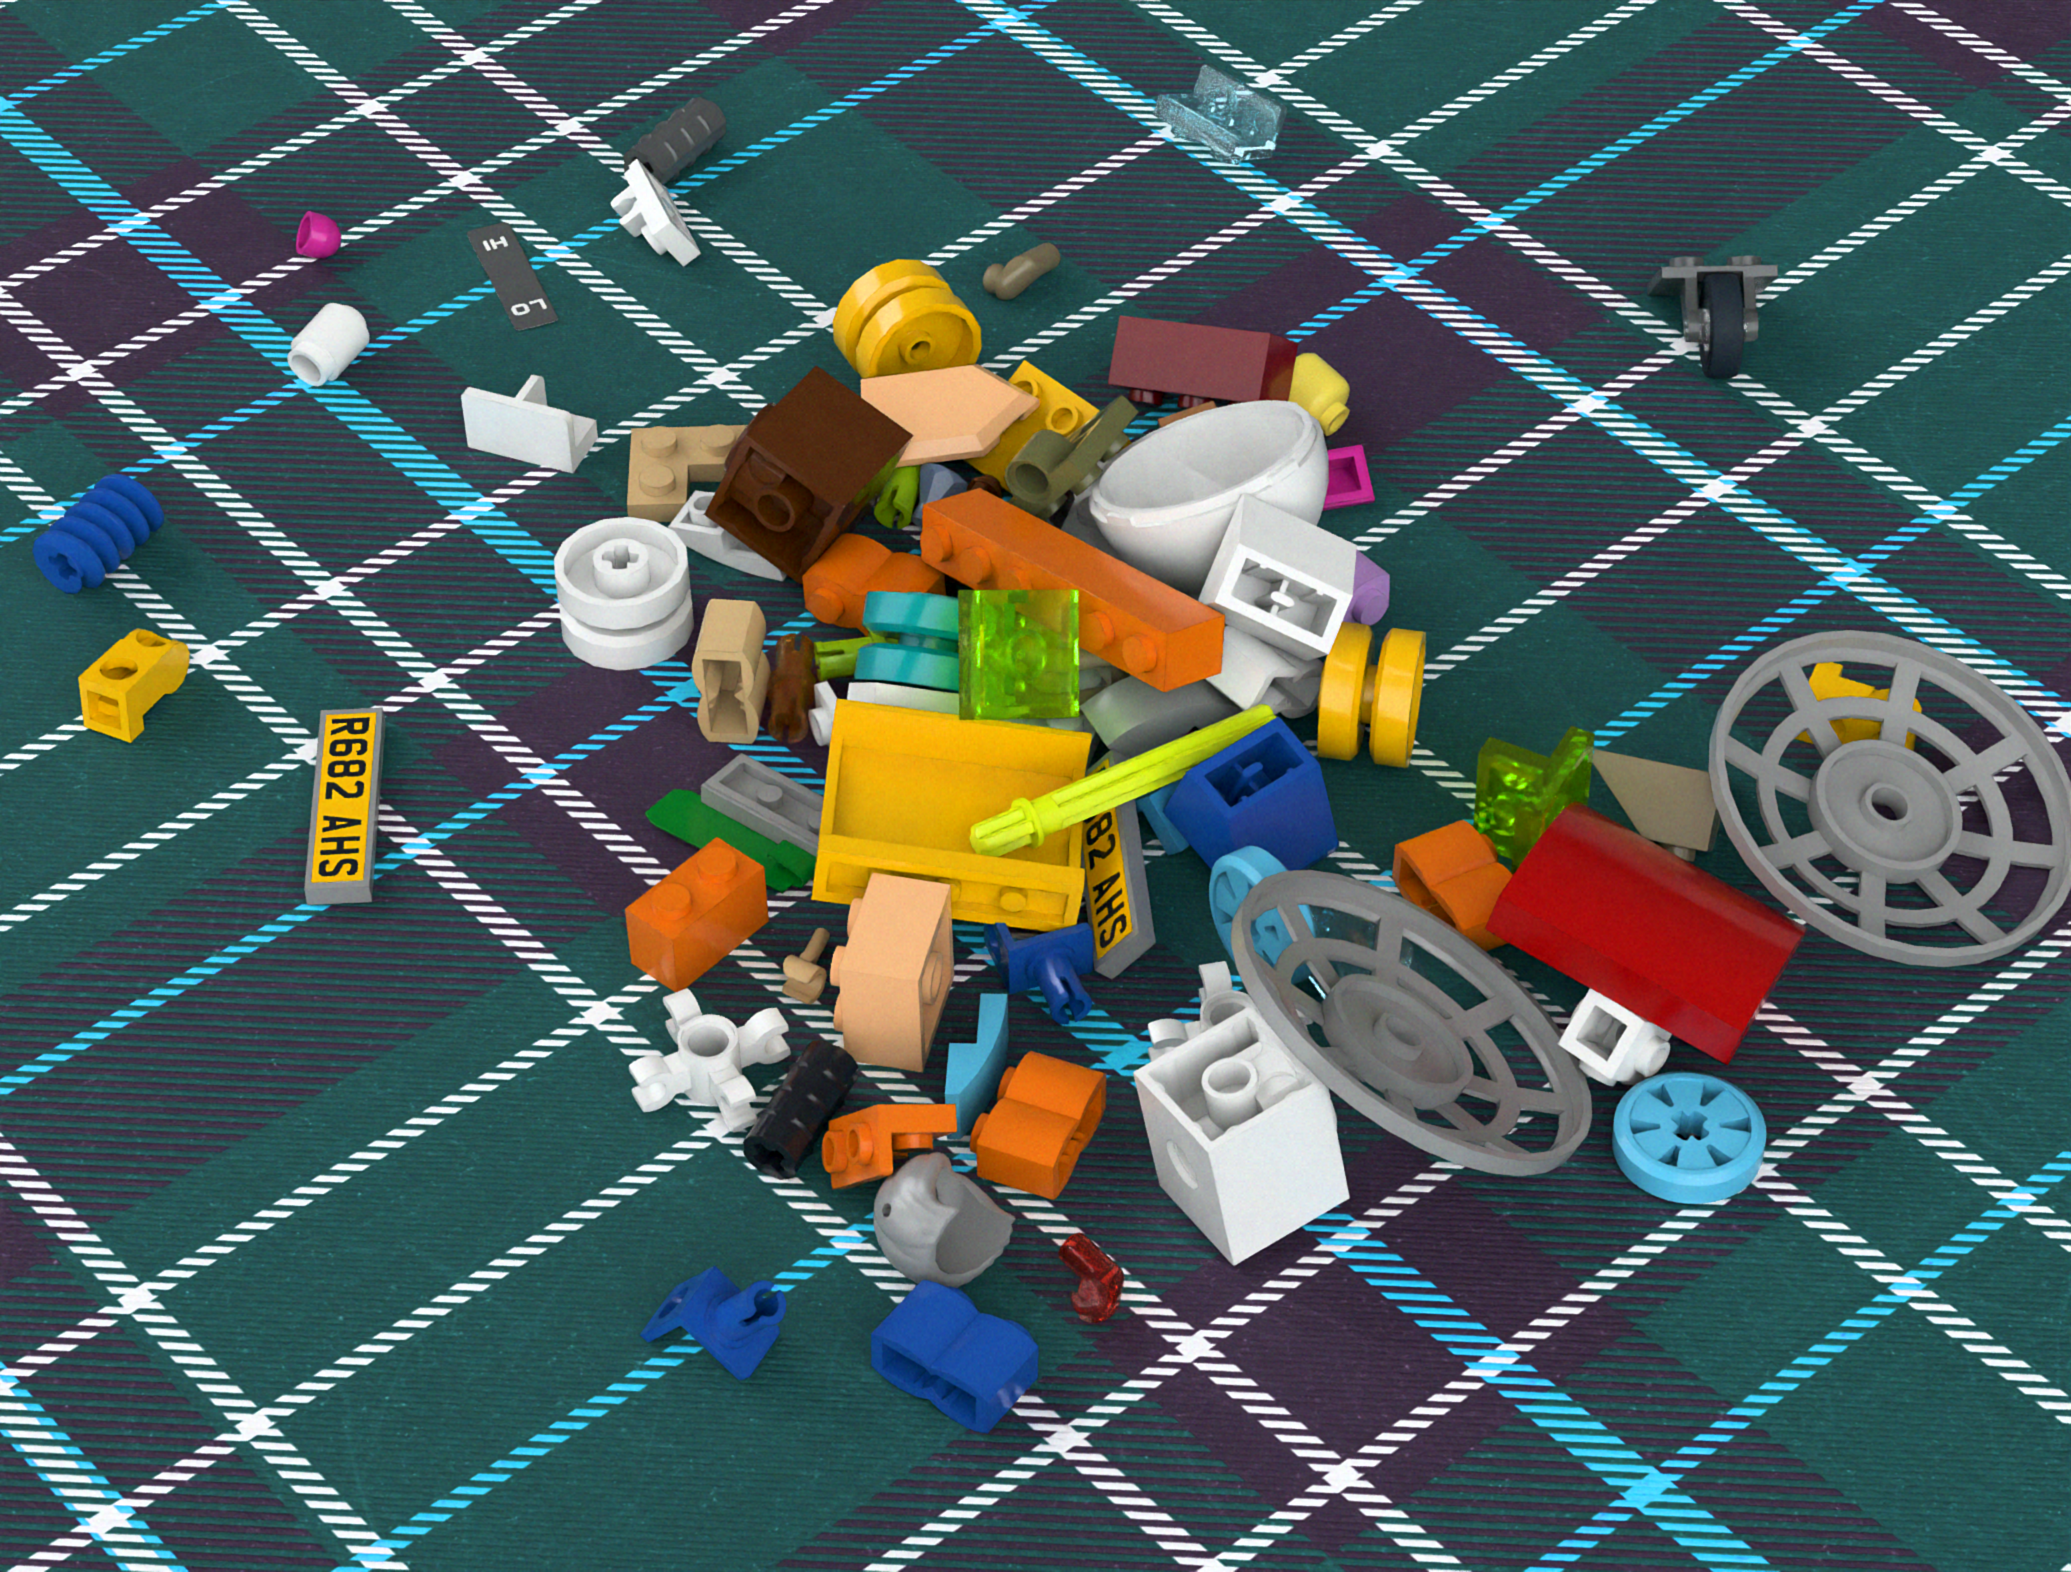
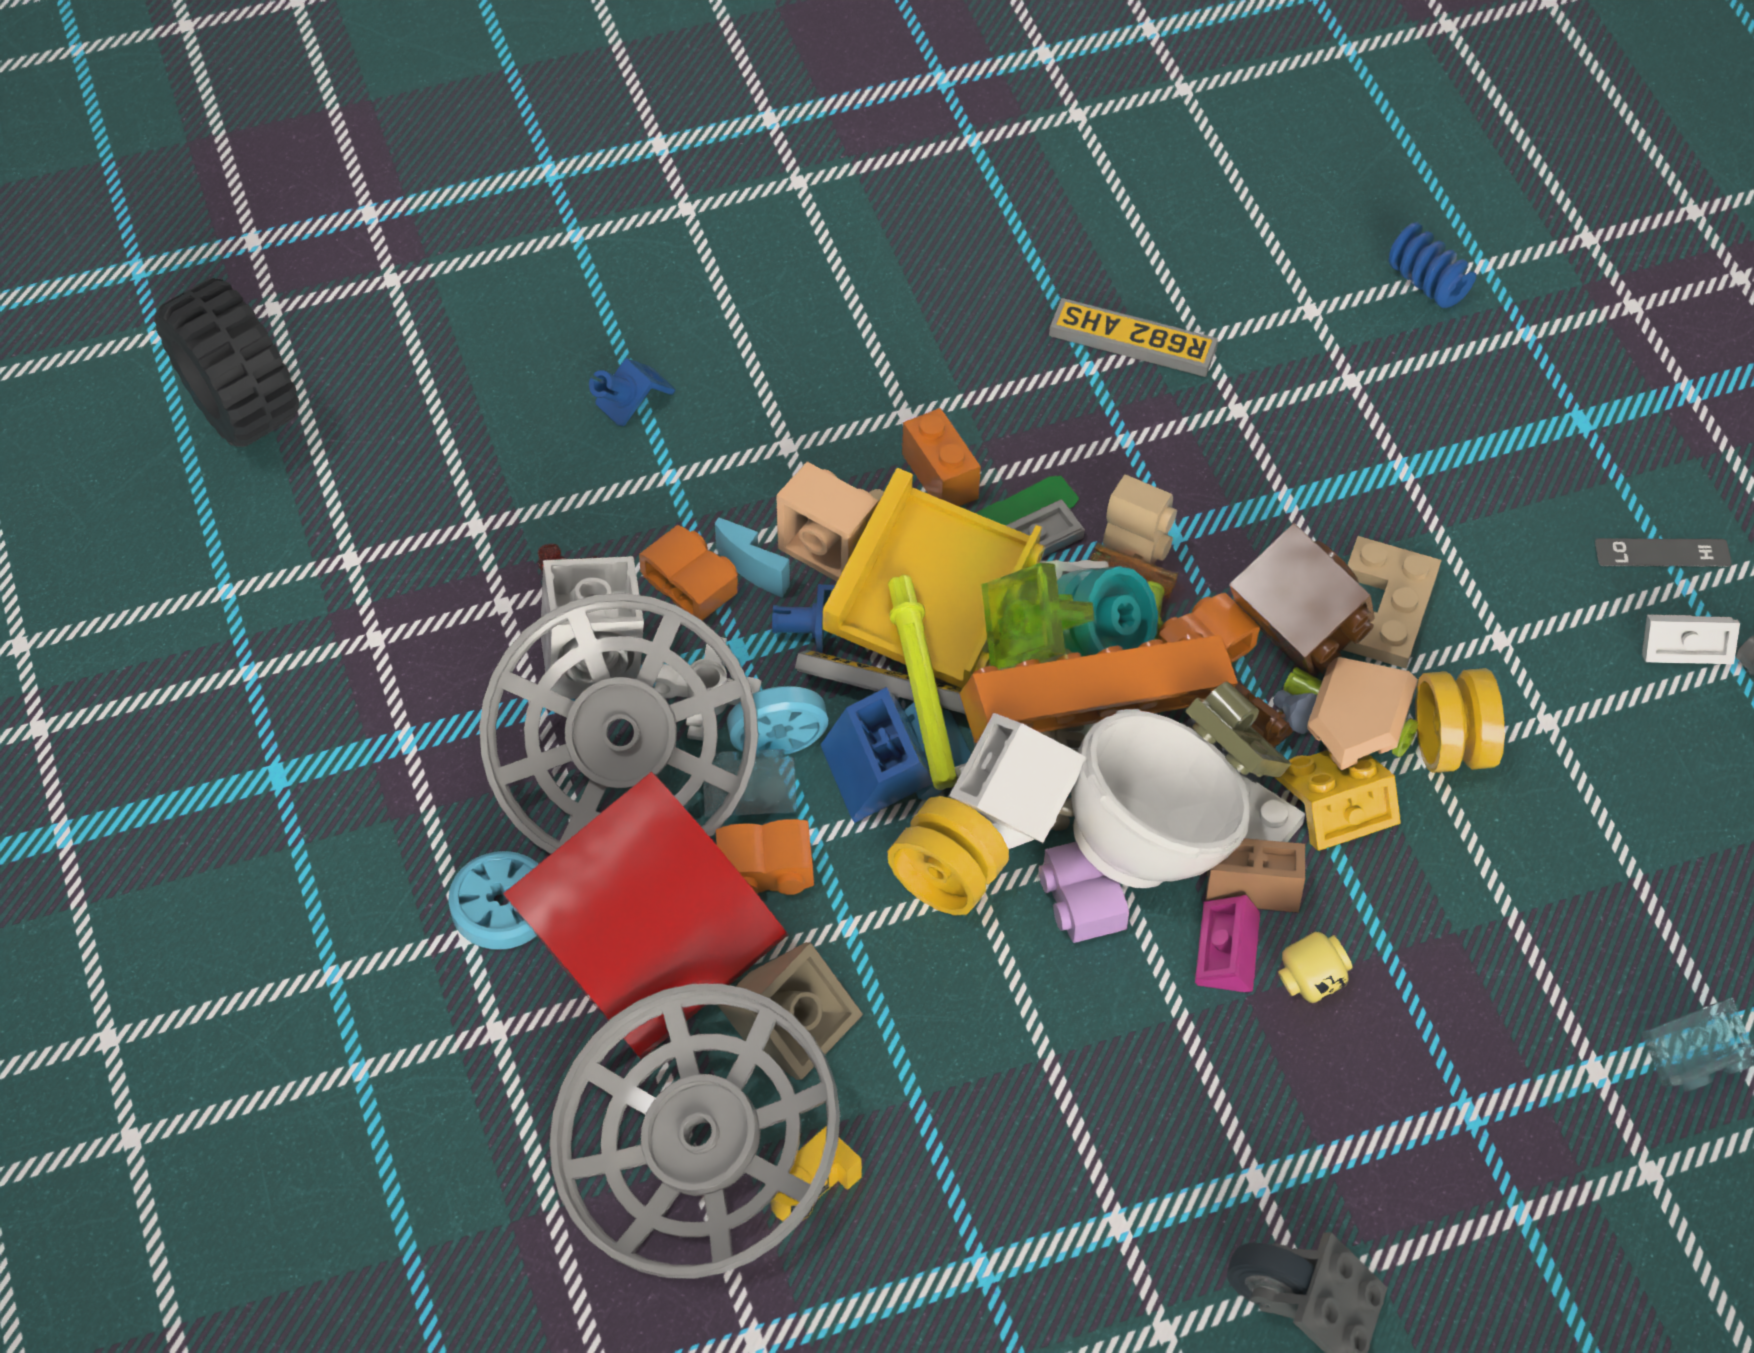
camera: 110 degrees right, 10 degrees up
(130, 681) = (1283, 257): yellow leg -> none
(317, 236) = (1733, 445): dark pink hinge -> none
(328, 344) = (1597, 421): white brick -> none
(527, 427) = (1463, 506): white panel -> none
(624, 593) = (1252, 498): white wheel -> none
(710, 1060) = (823, 435): white pin -> none
(800, 1109) = (757, 463): black axle -> none
(867, 1141) = (702, 480): orange bracket -> none
(938, 1222) = (631, 488): light grey piece -> none
(955, 1355) = (544, 480): blue brick -> none
(1020, 271) = (1542, 840): dark tan arm -> none
(1199, 363) = (1351, 888): dark red brick -> none
(1526, 791) = (799, 902): clear neon green bracket -> none

